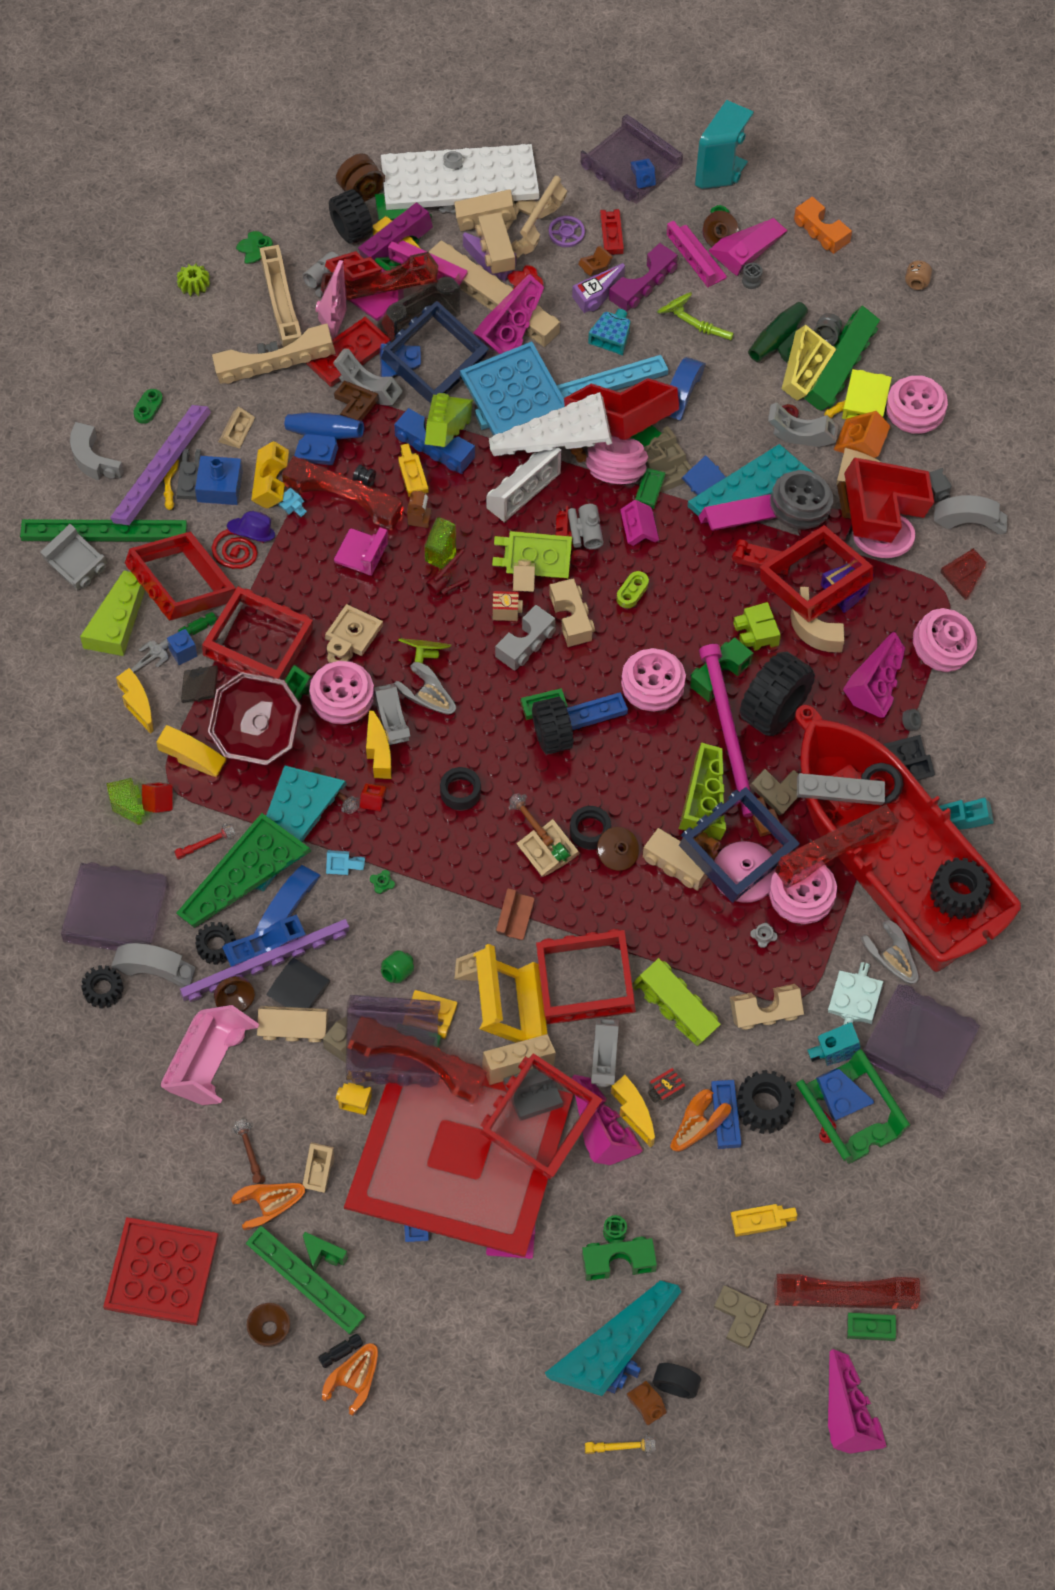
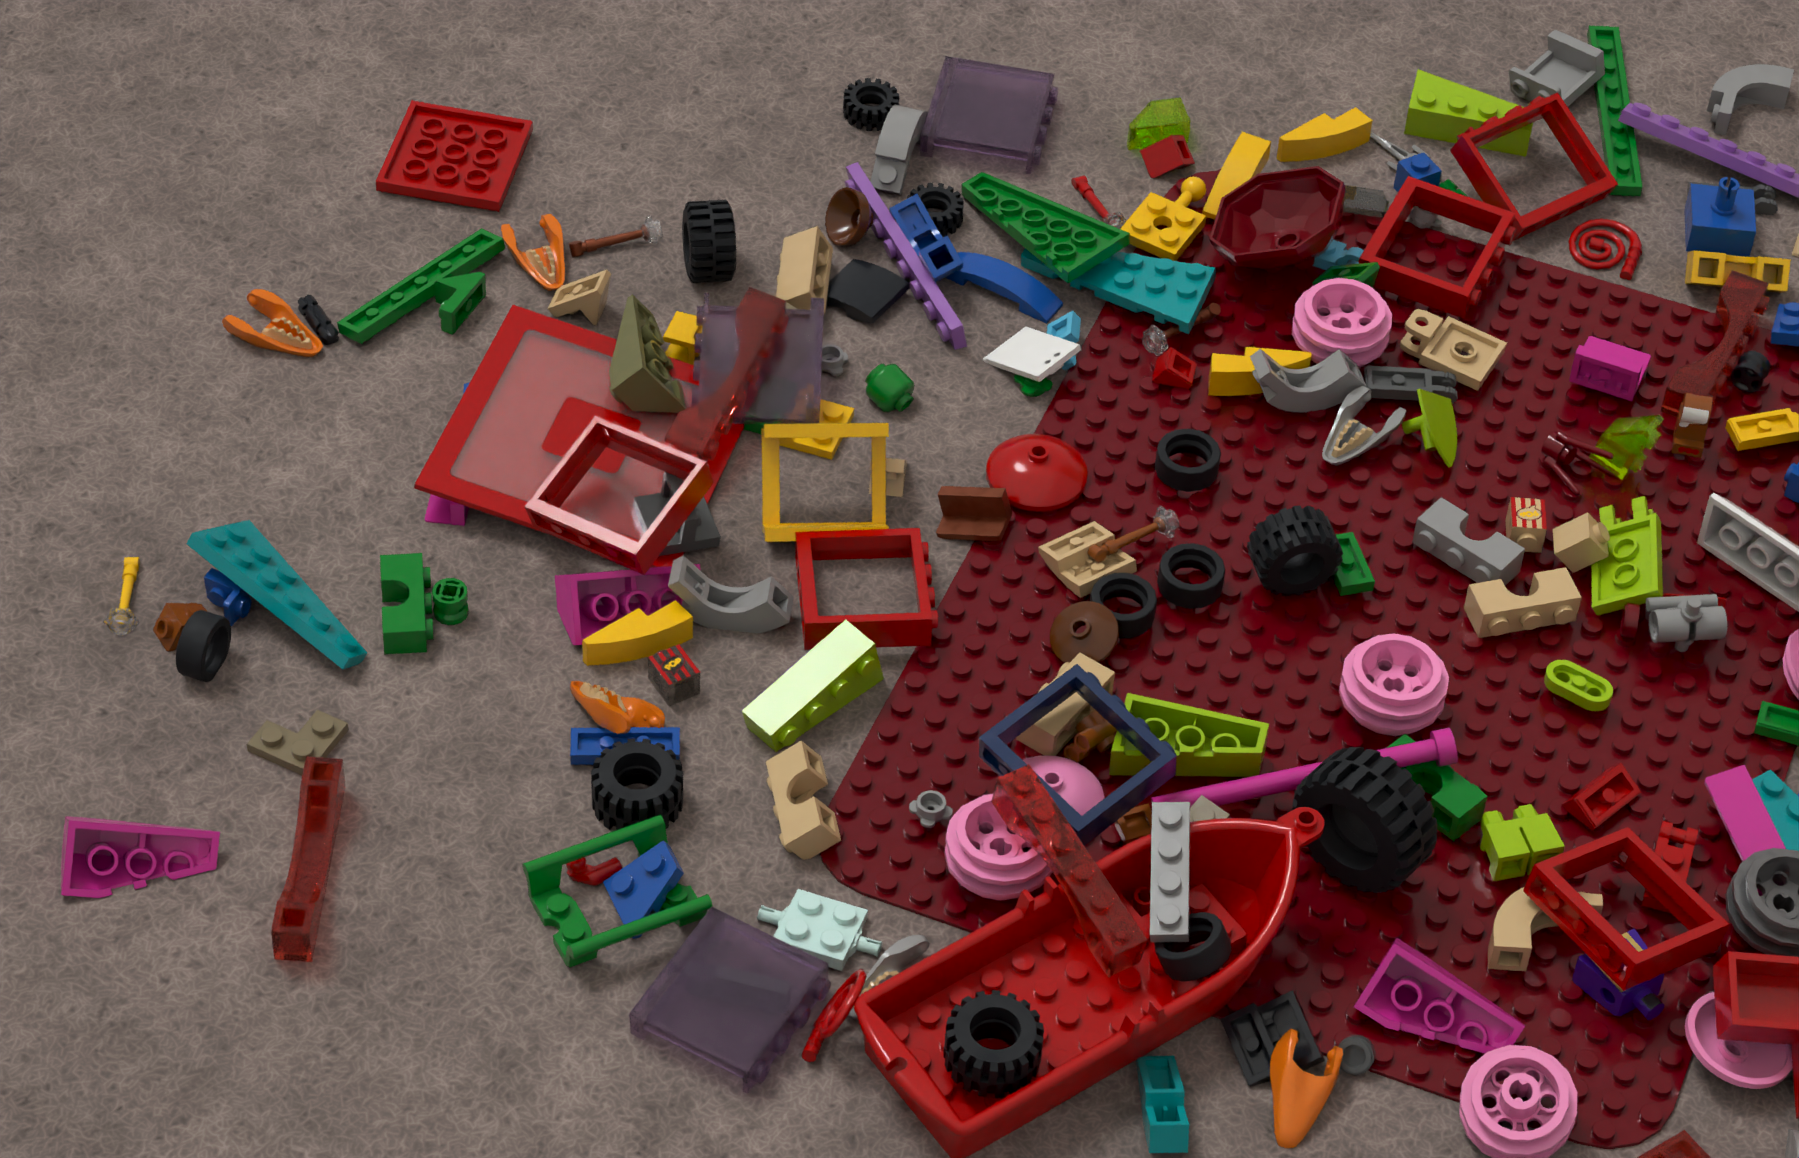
camera: 90 degrees right, 15 degrees down
(168, 494) = (1700, 177): yellow piece -> none
(203, 1051) = (752, 189): bright pink windscreen -> none
(230, 786) = (1181, 222): none -> yellow plate
(252, 525) = (1640, 258): dark purple piece -> none
(268, 1313) = (361, 238): reddish brown piece -> none
(270, 1080) = (709, 241): none -> black tyre
(292, 502) = (1694, 297): medium azure plate -> none
(362, 880) = (1032, 354): none -> white container
(383, 663) = (1403, 382): none -> dark grey hinge
(410, 1117) = (640, 365): none -> olive wedge
(467, 889) = (1037, 472): none -> red dish
(504, 1061) = (732, 505): tan brick -> none
(560, 852) = (1074, 562): green plate -> none
(562, 803) = (1187, 594): none -> black tyre
(597, 710) = (1333, 617): blue plate -> none
(639, 522) = (1716, 706): dark pink panel -> none
(712, 587) = (1602, 797): none -> red slope
(761, 1219) = (446, 775): yellow hinge -> none
(836, 1045) = (726, 869): teal torso -> none
(871, 1326) = (252, 894): green plate -> none
(928, 975) = (834, 1014): none -> red piece
(945, 748) = (1296, 1093): none -> orange animal

